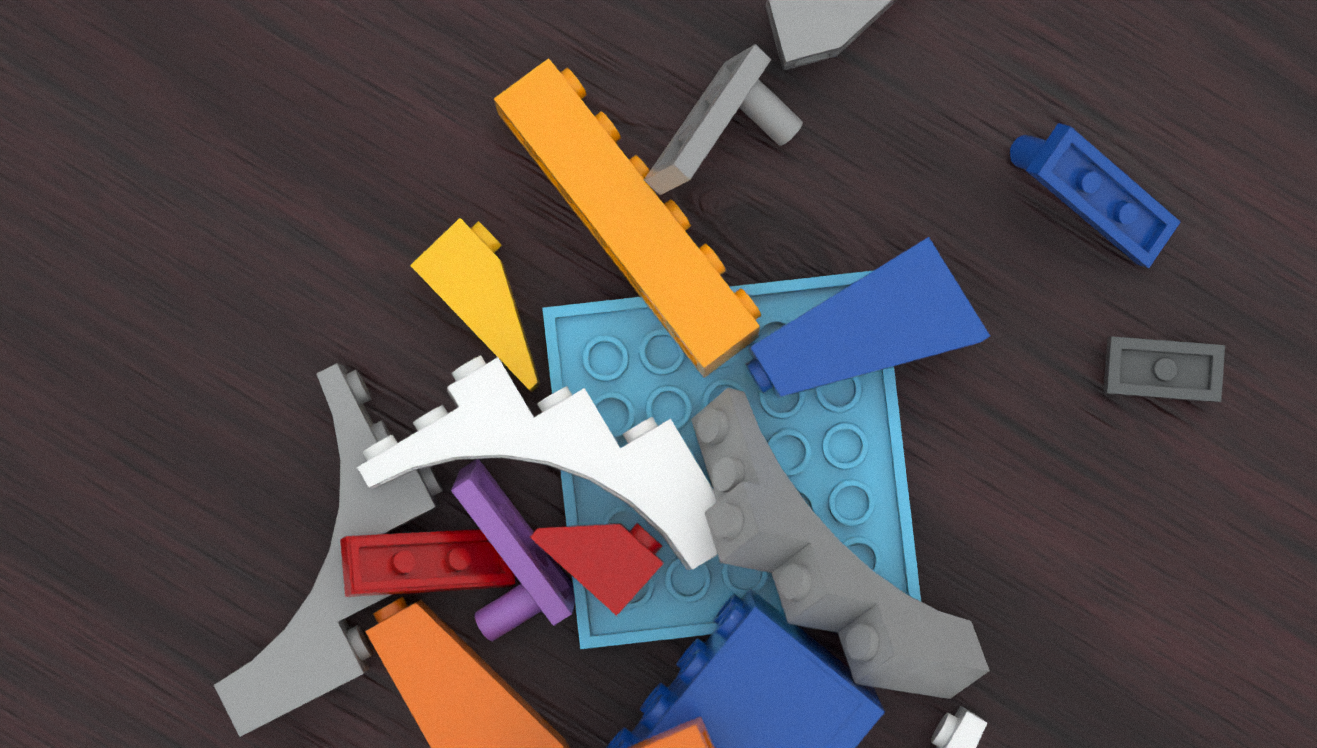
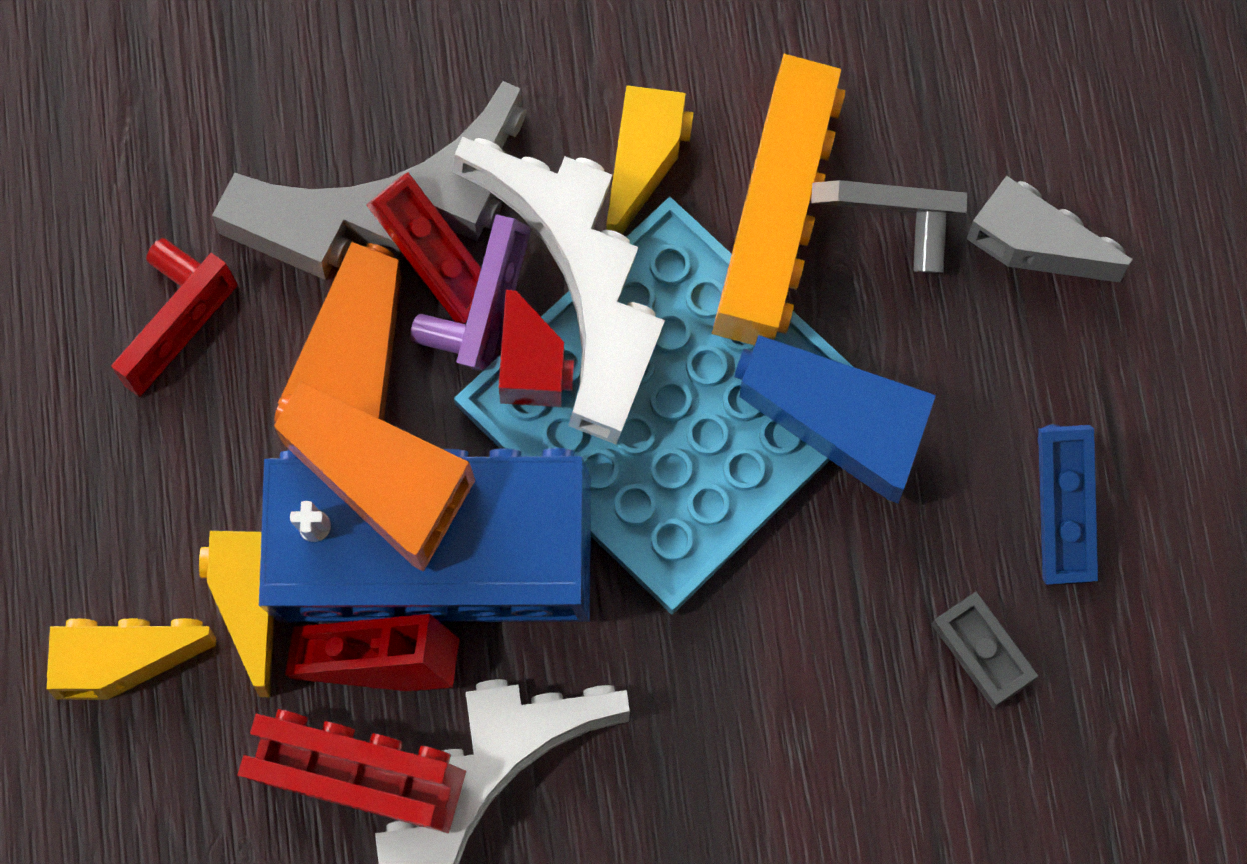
camera: 50 degrees right, 15 degrees down
(820, 582) = (635, 505): light grey arch -> none

